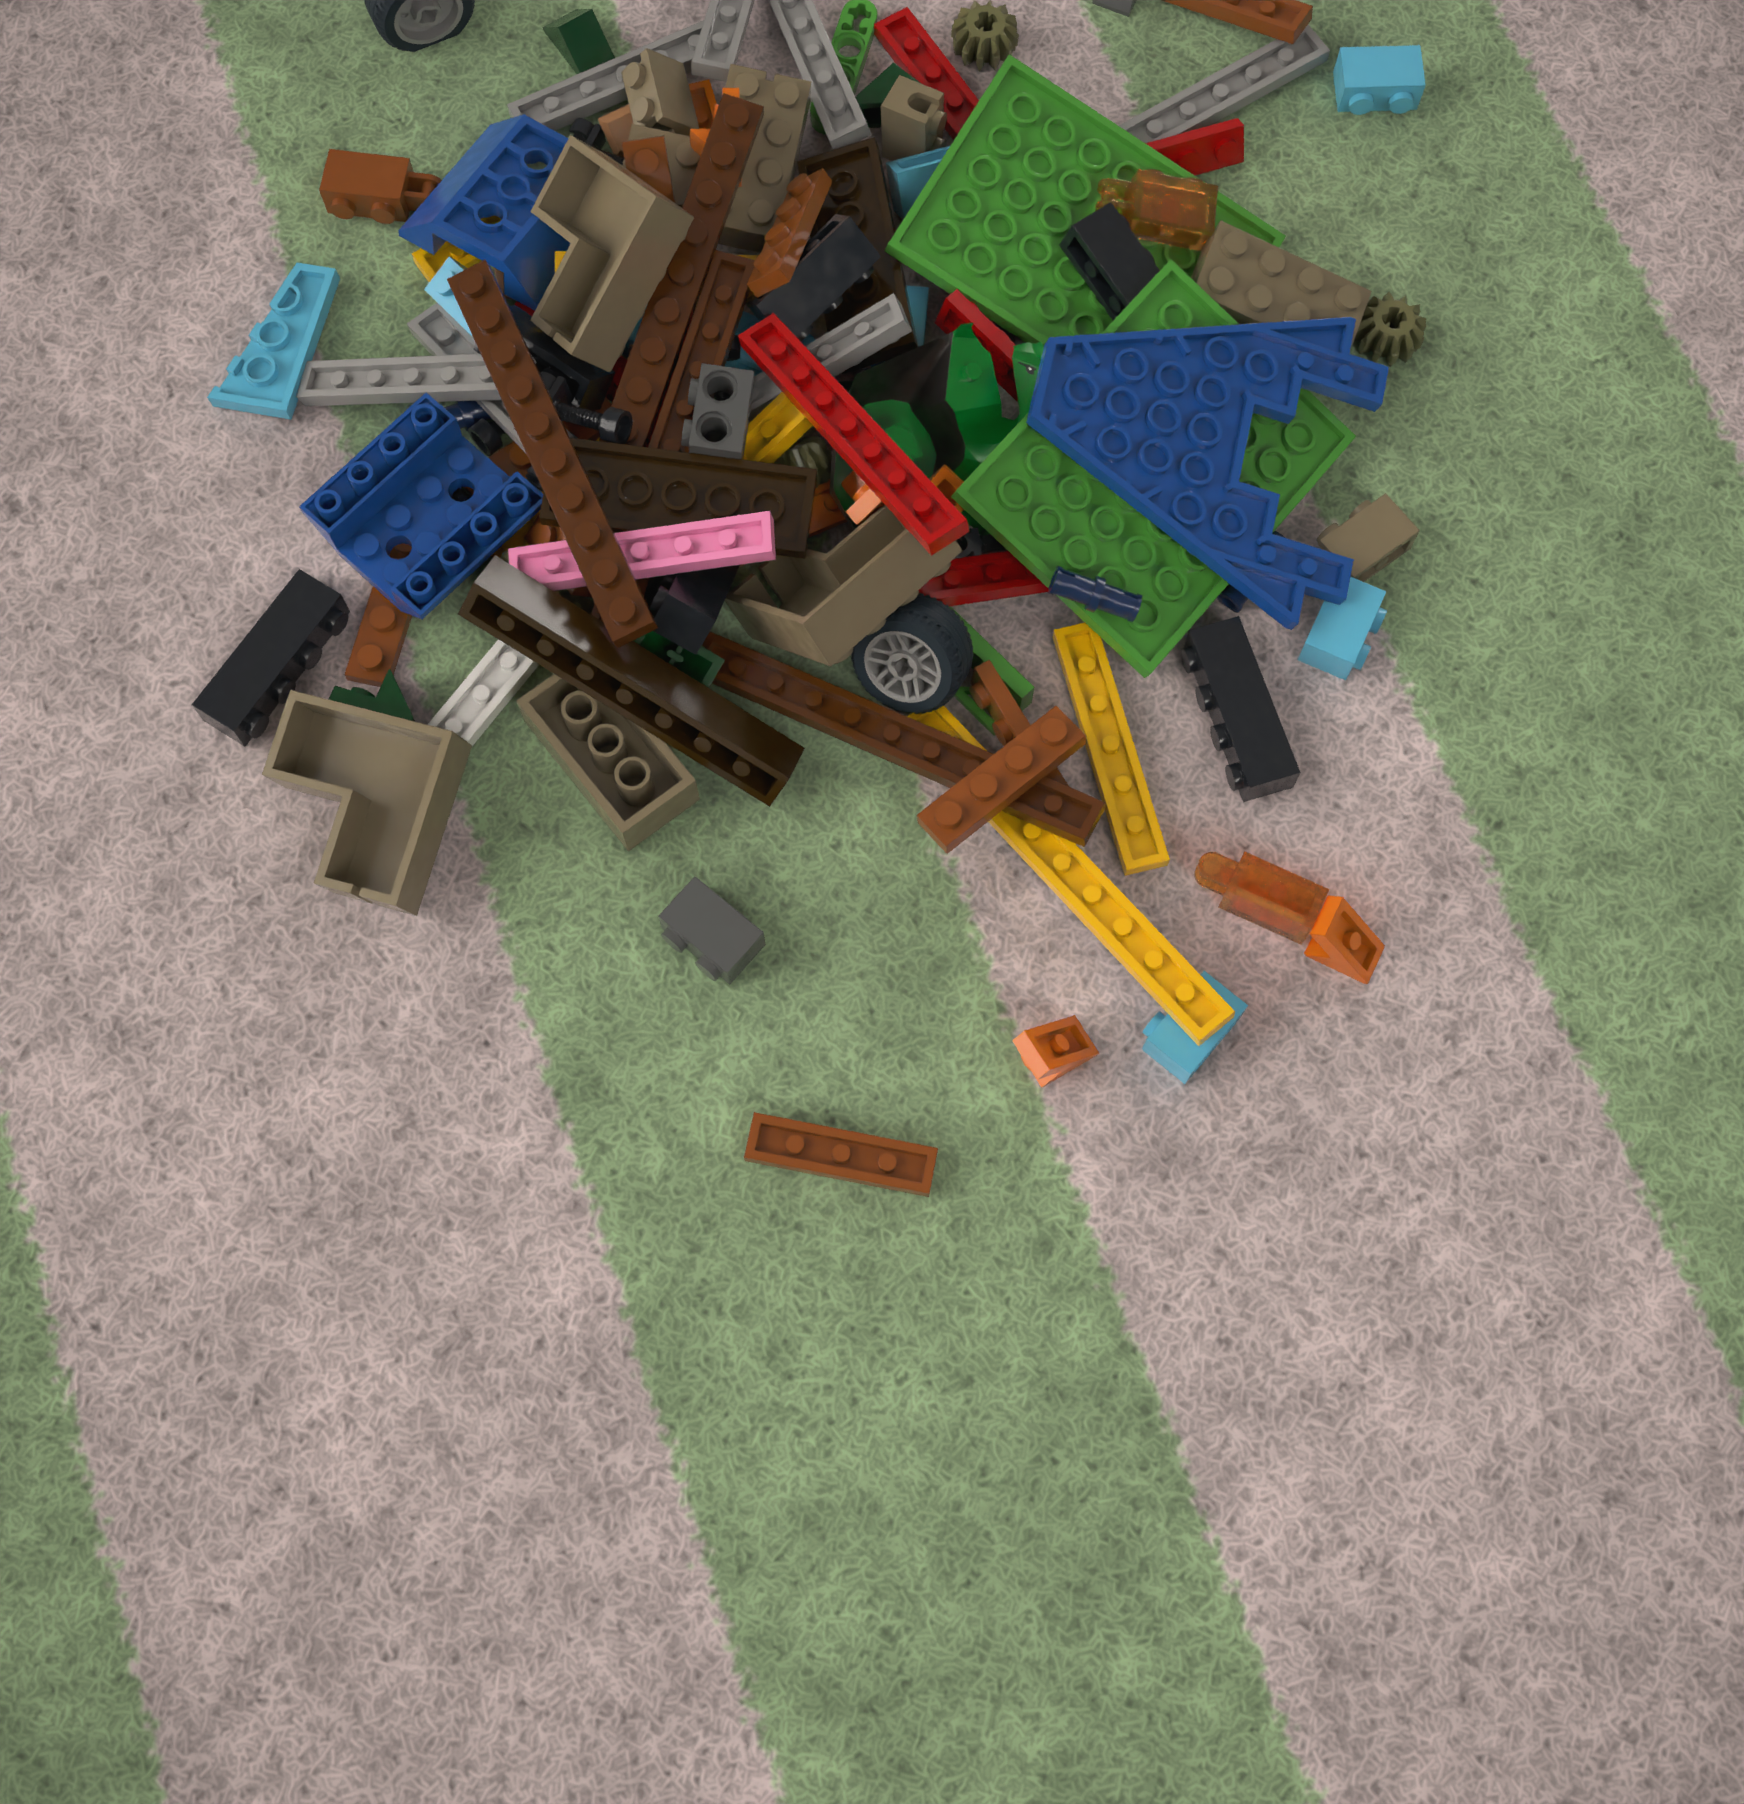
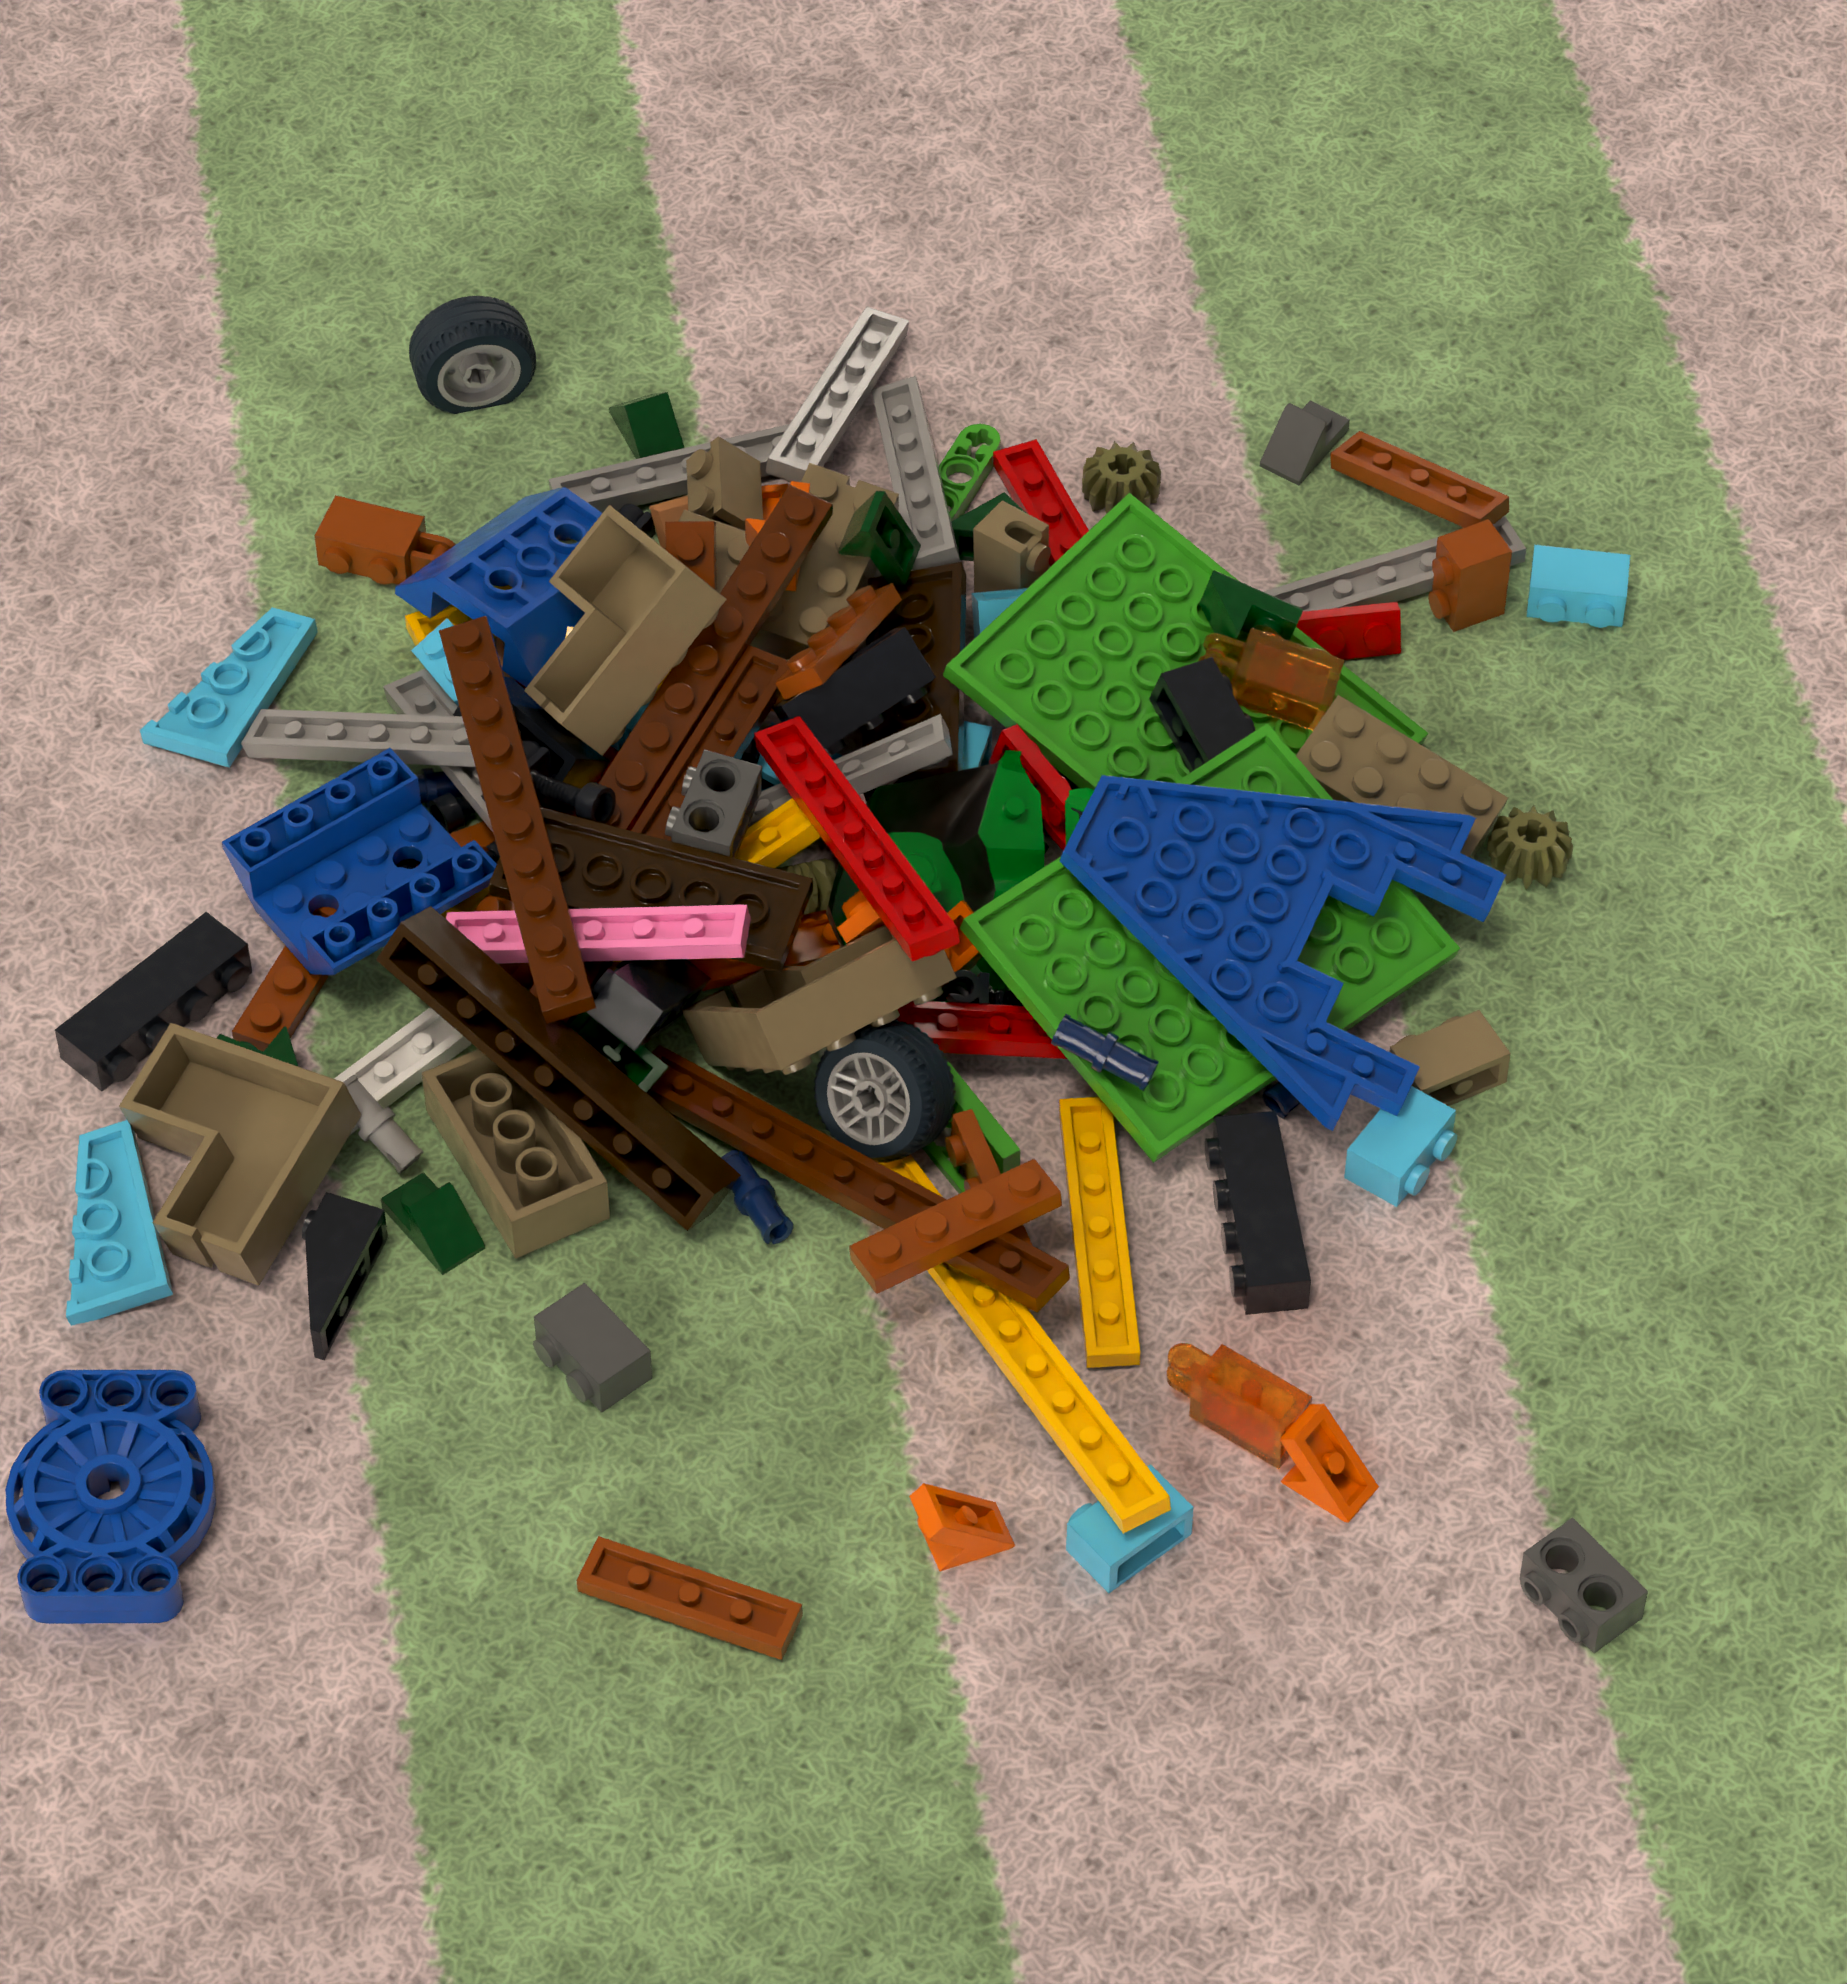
camera: 10 degrees right, 20 degrees down
(288, 909) = (116, 1244): none -> medium azure wing
(294, 1113) = (119, 1541): none -> blue piece
(479, 876) = (341, 1249): none -> black slope
(488, 748) = (381, 1129): none -> light grey pin
(552, 829) = (434, 1221): none -> dark green slope
(805, 124) = (884, 536): none -> dark green slope
(820, 763) = (757, 1200): none -> dark blue pin
(1119, 150) = (1239, 607): none -> dark green slope
(1295, 84) = (1470, 576): none -> dark orange brick
(1581, 1008) = (1592, 1580): none -> dark grey brick

